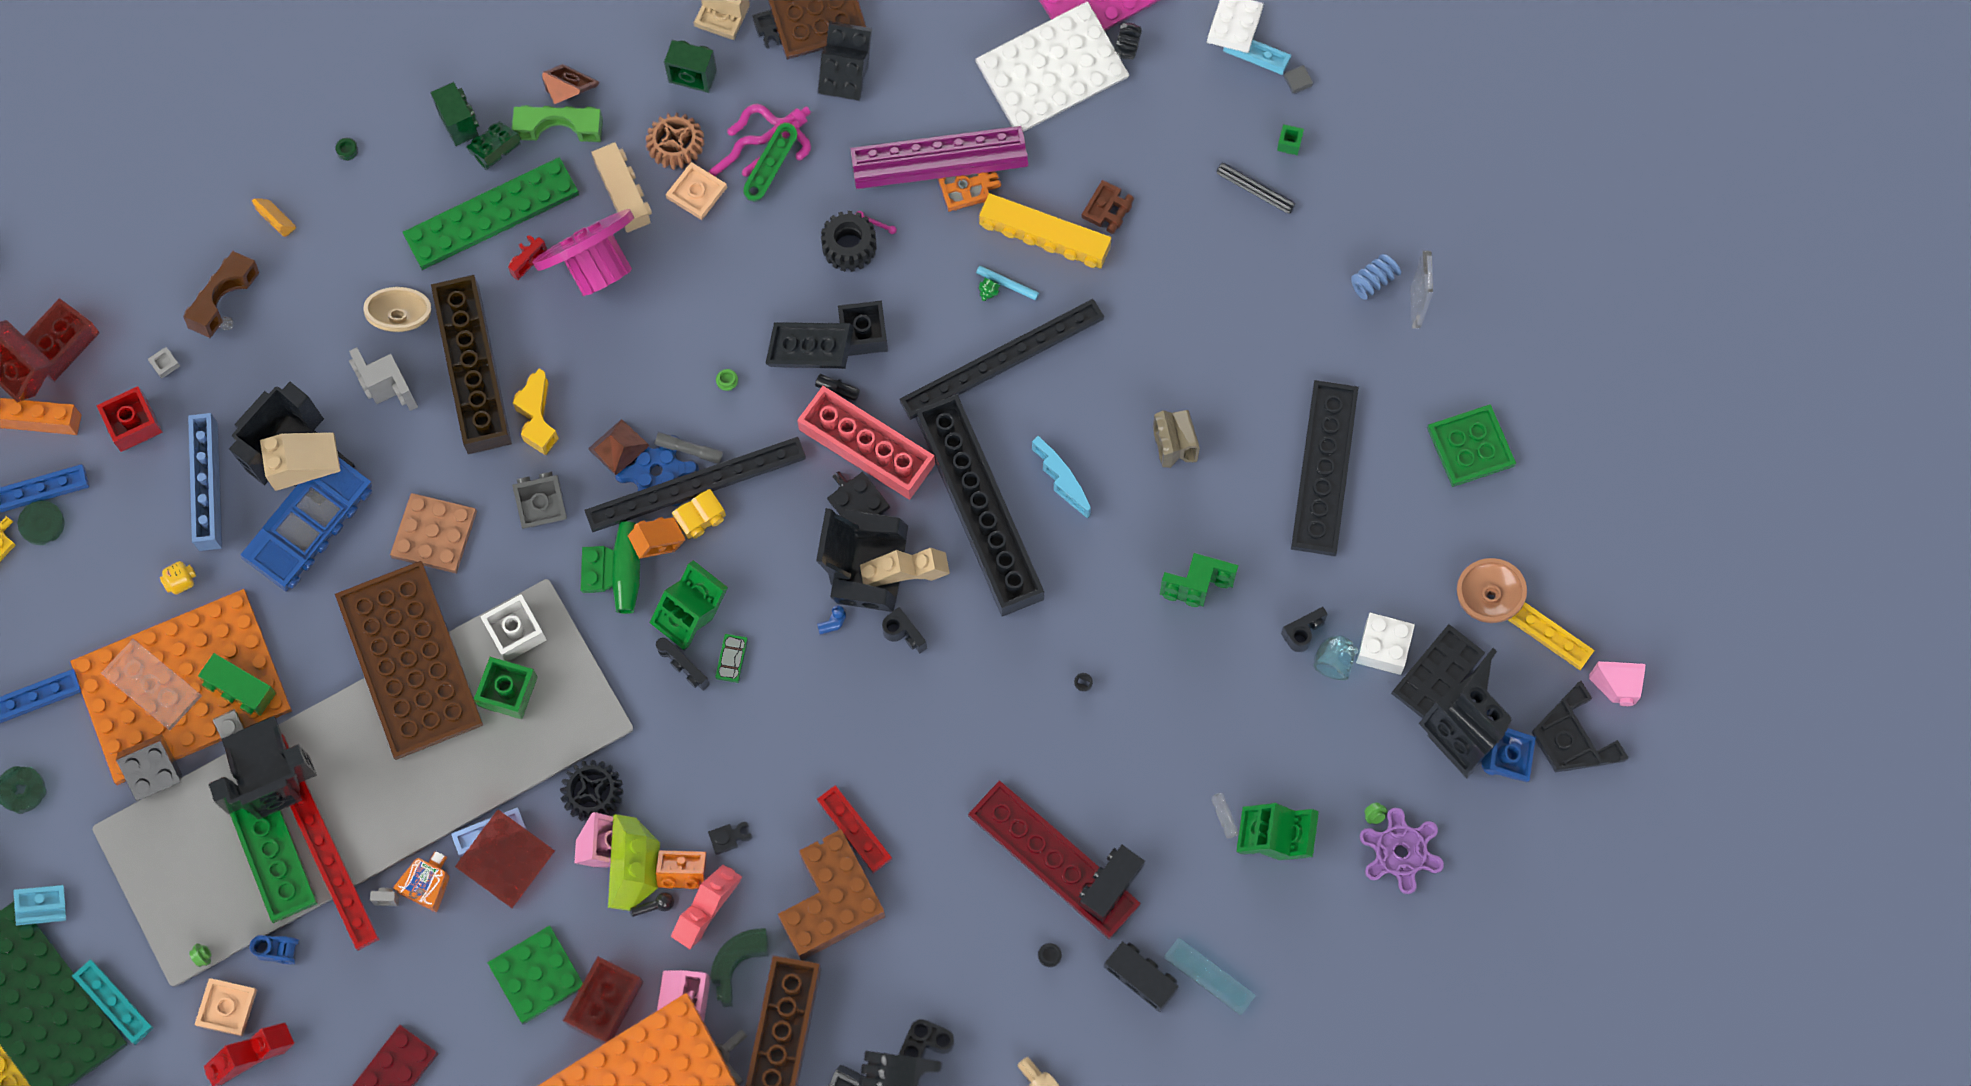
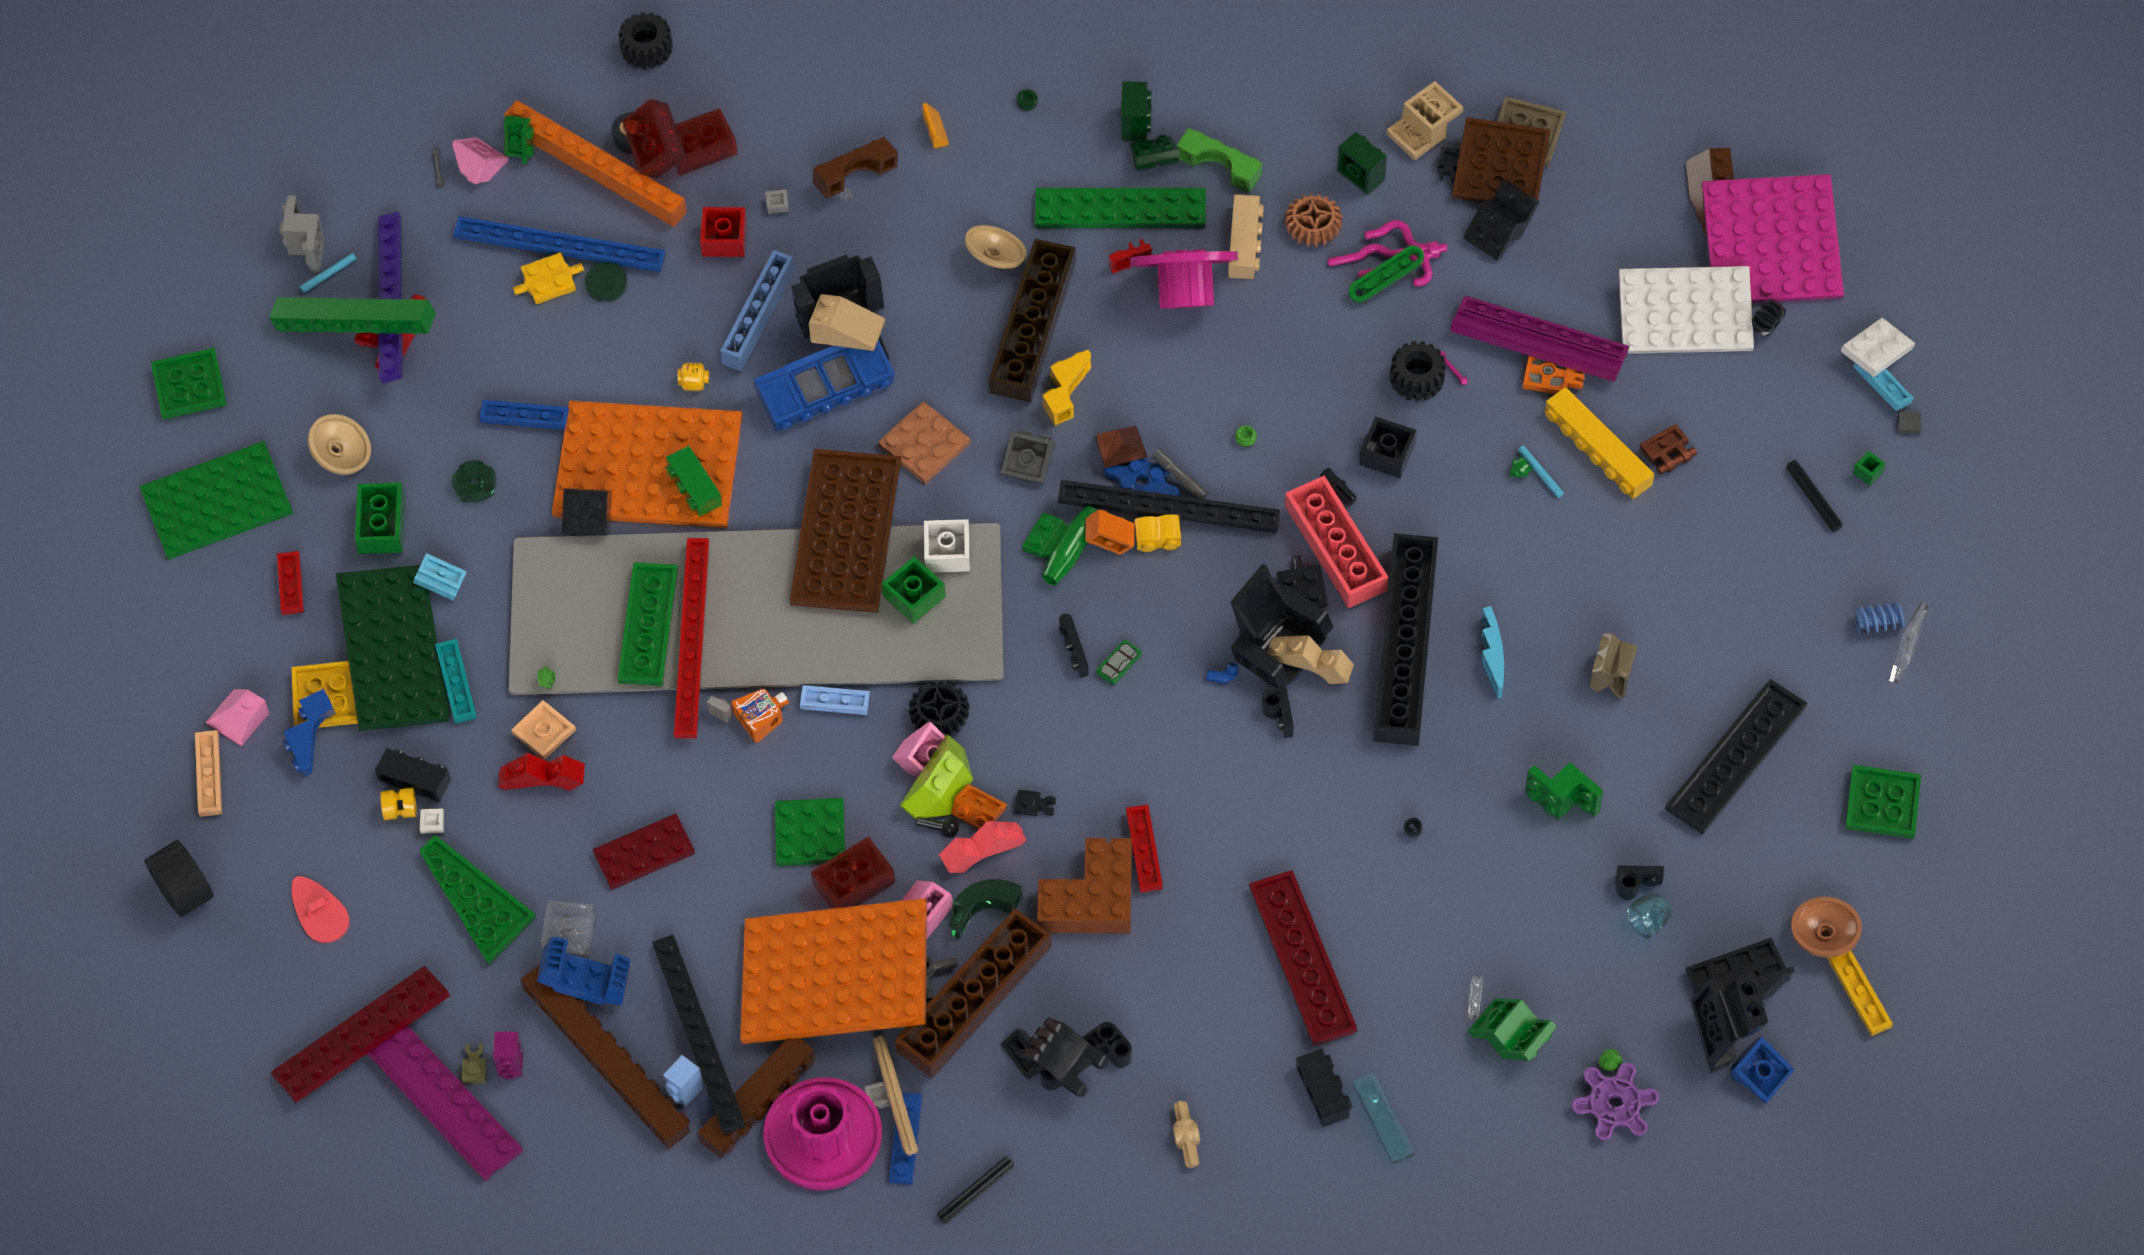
camera: 30 degrees right, 10 degrees down
(151, 684) = (624, 449): clear tile -> none
(228, 723) = (669, 510): light grey plate -> none
(263, 770) = (678, 557): black piece -> none
(279, 949) = (611, 707): blue piece -> none
(381, 379) = (950, 297): light grey bracket -> none
(505, 858) = (836, 725): clear red plate -> none
(566, 82) = (1246, 130): copper slope -> none
(688, 605) = (1106, 599): green bracket -> none
(696, 191) = (1308, 269): light nougat plate -> none
(809, 345) = (1332, 438): black plate -> none
(1004, 357) = (1505, 530): black plate -> none
(1049, 955) = (1253, 1032): black plate -> none
(1111, 882) = (1340, 996): black brick -> none
(1385, 643) = (1703, 925): white brick -> none
(1566, 741) = (1821, 1086): black wing -> none
(1619, 681) = (1899, 1057): bright pink slope -> none

